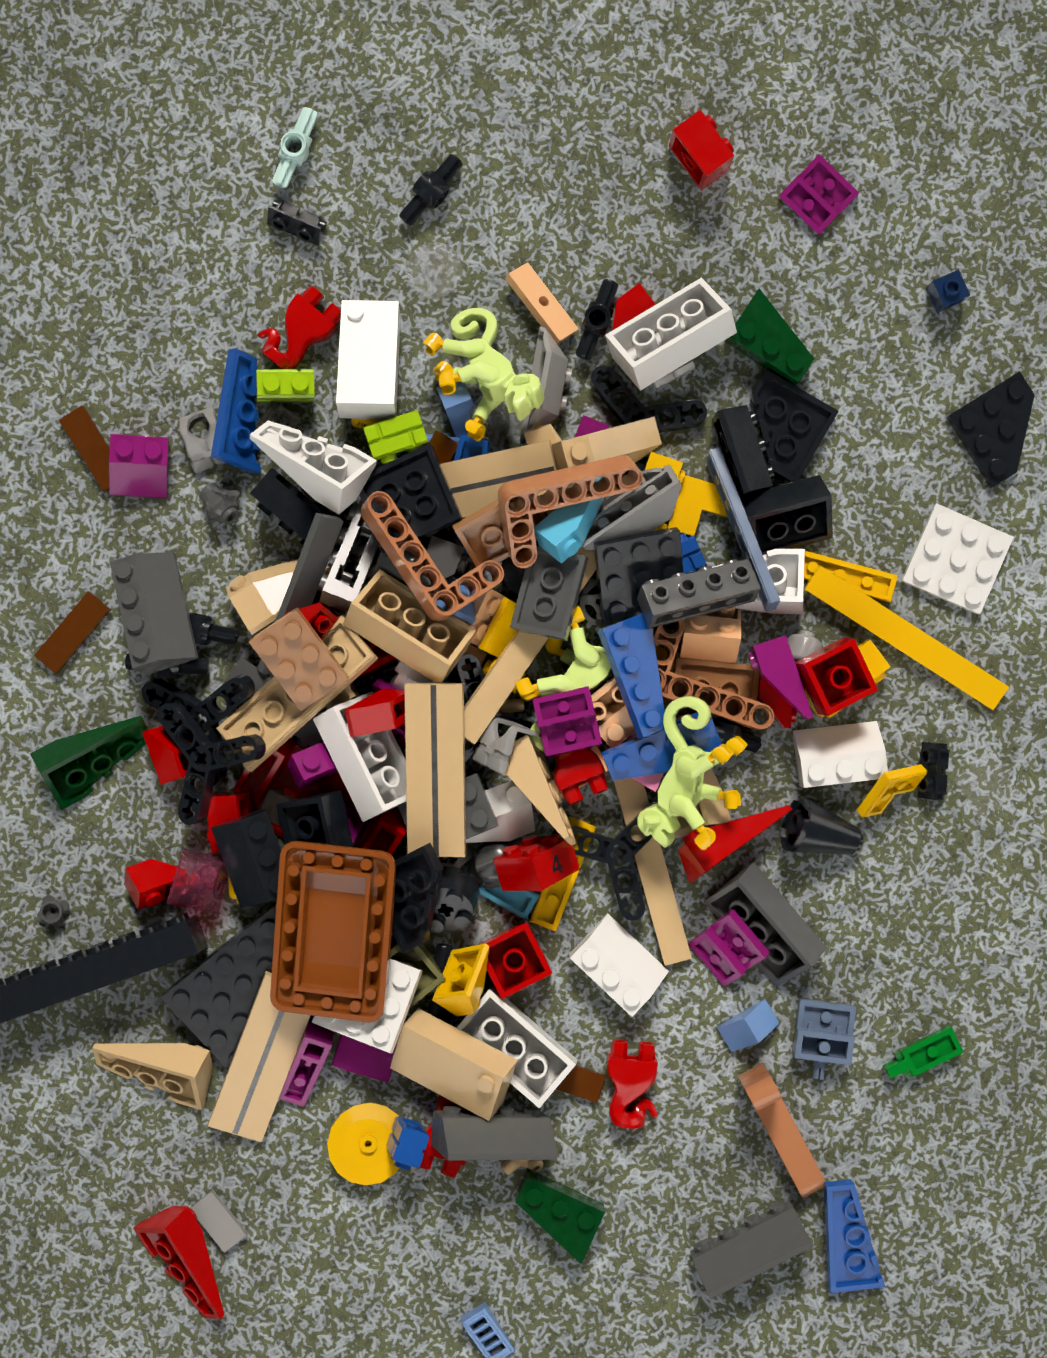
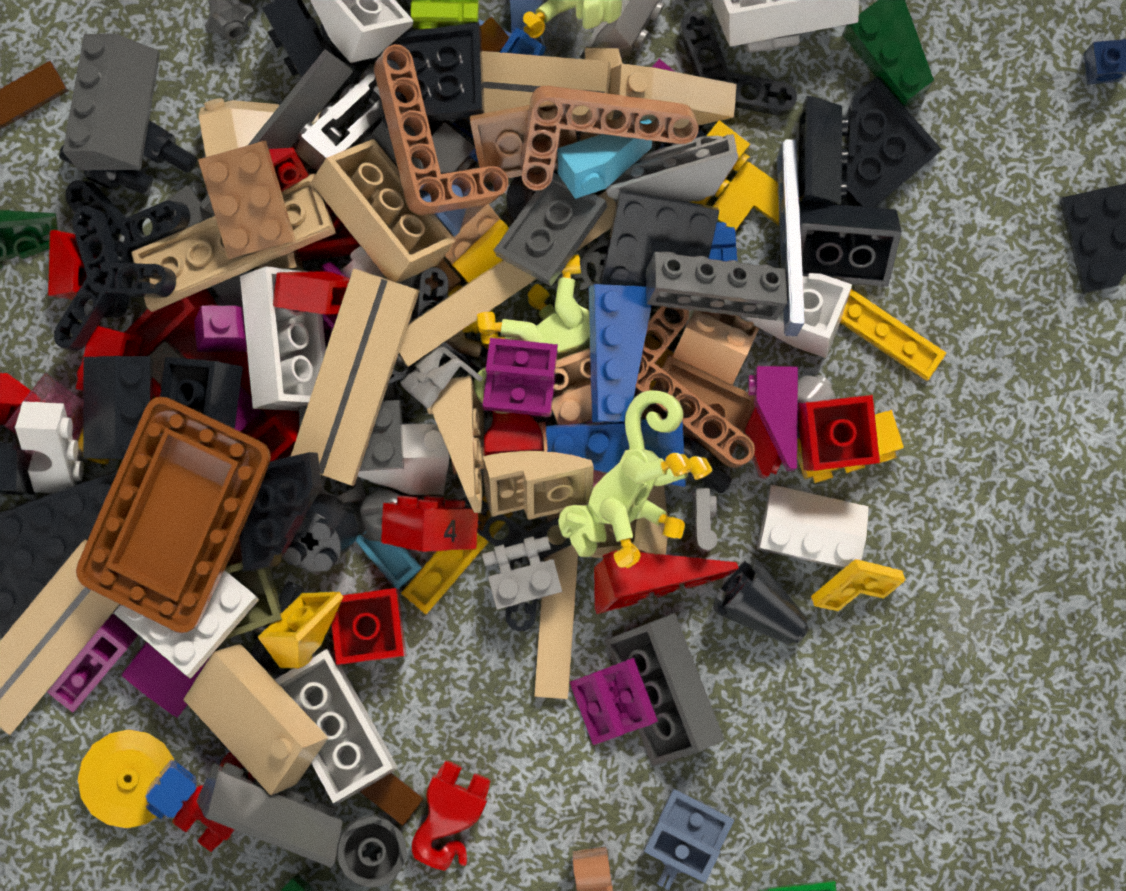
camera: 25 degrees right, 5 degrees down
(207, 901) = (49, 433): none -> white arch
(511, 1165) = (305, 867): tan arm -> none
(596, 1131) = (388, 859): none -> dark grey brick
(609, 800) = (536, 482): none -> tan slope
(619, 964) = (483, 676): white slope -> none
(627, 881) = (524, 583): none -> light grey plate
(748, 773) = (703, 509): none -> light grey plate
(748, 1026) = (605, 799): medium blue slope -> none
(906, 637) = (933, 424): yellow tile -> none
(933, 757) = (918, 569): black hinge -> none
(957, 559) = (1019, 358): white plate -> none

